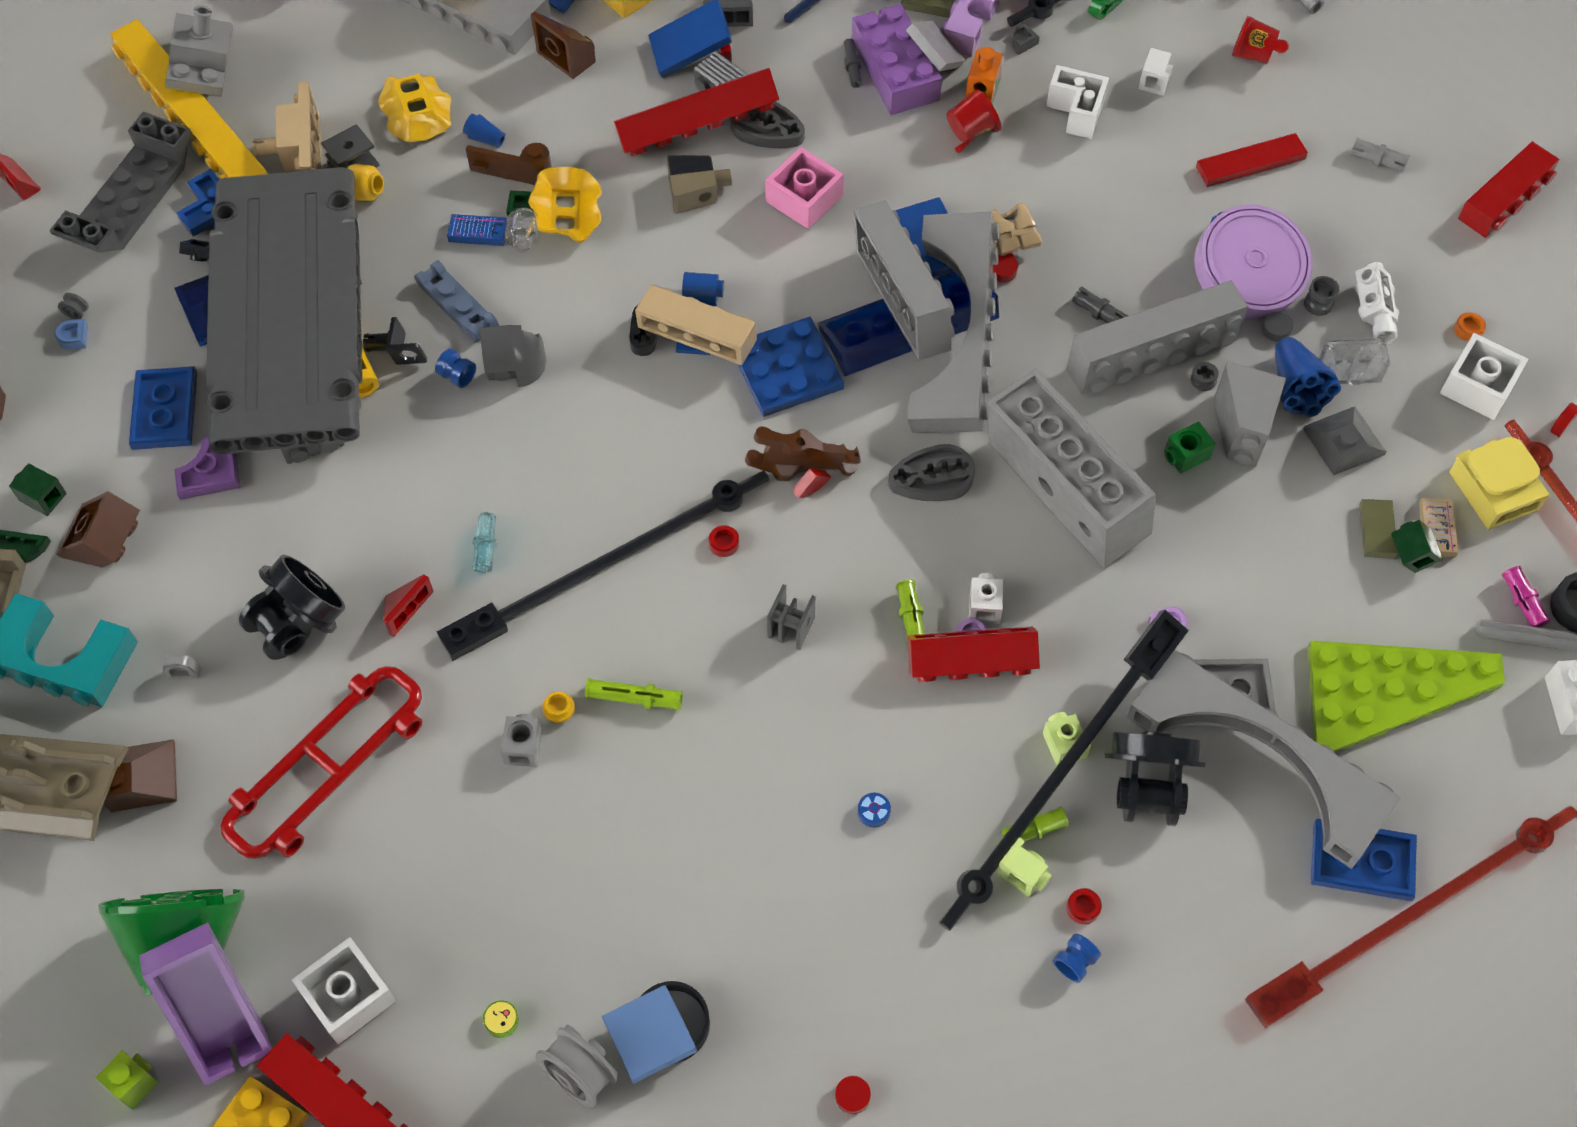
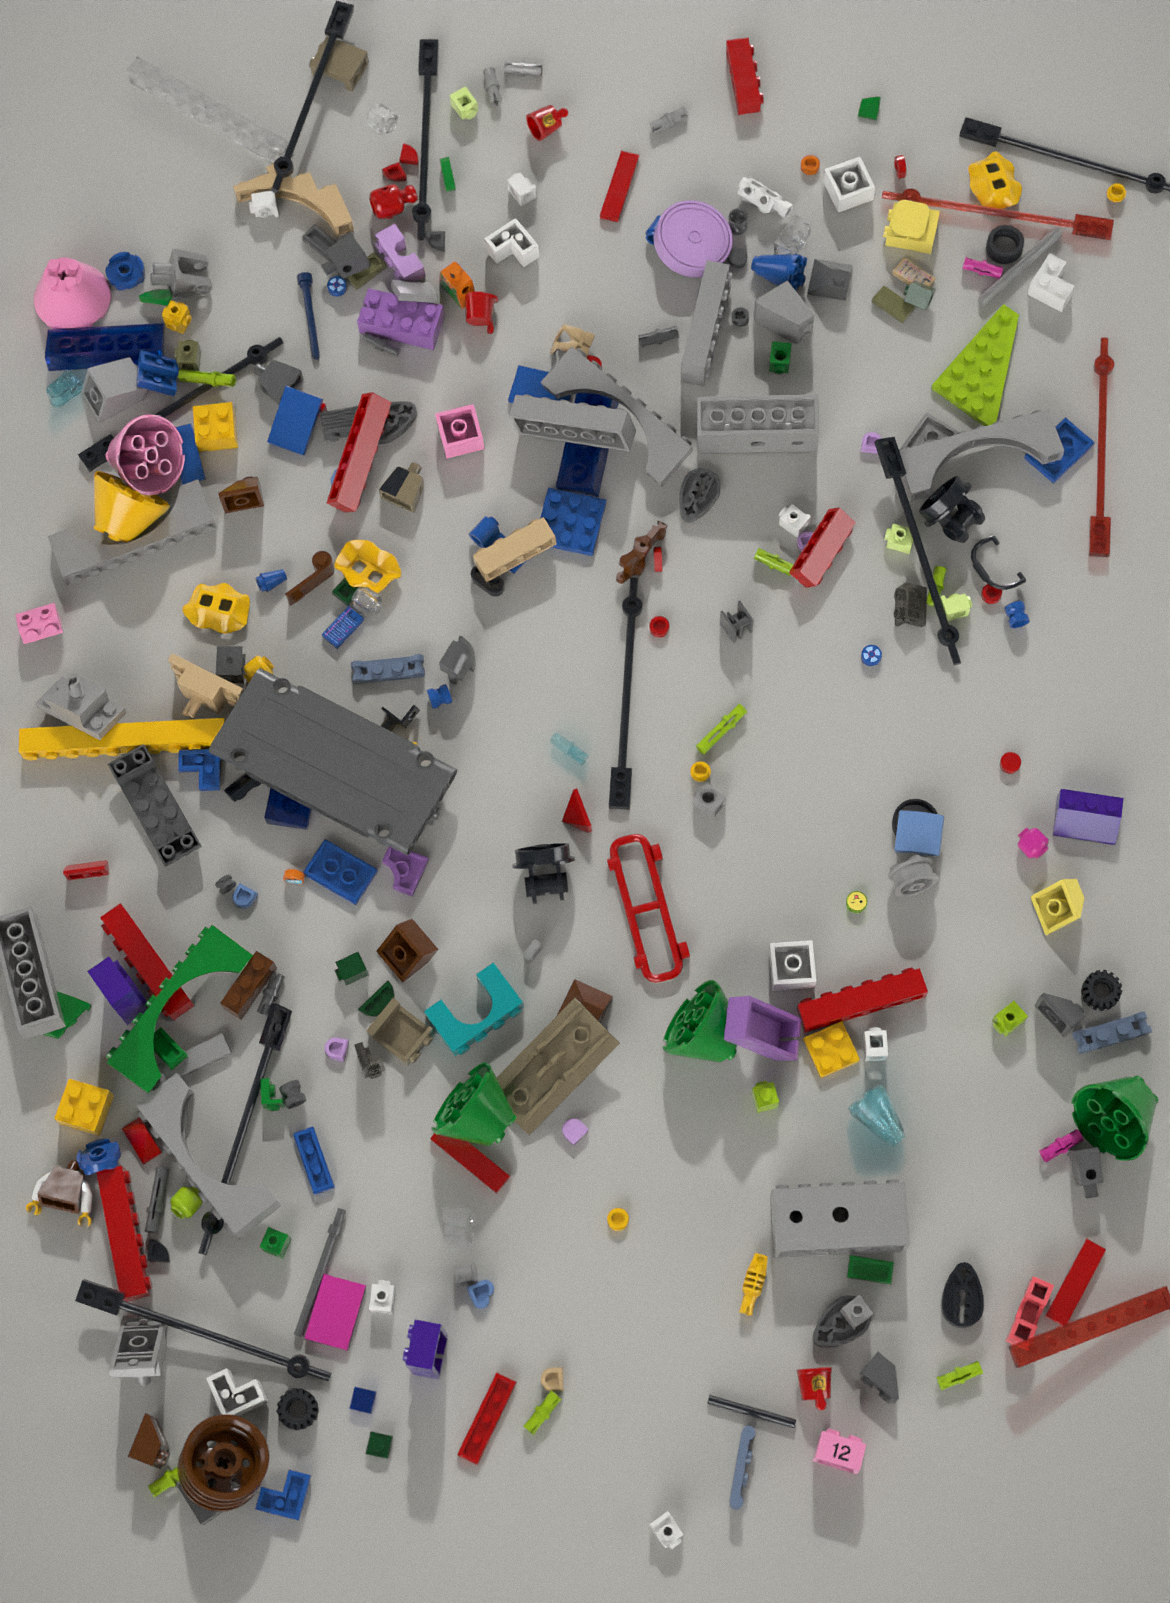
camera: 50 degrees left, 10 degrees up
(124, 364) = (294, 876): none -> orange tile
(982, 812) = (910, 605): none -> clear smoke bracket
(1100, 875) = (984, 575): none -> black piece

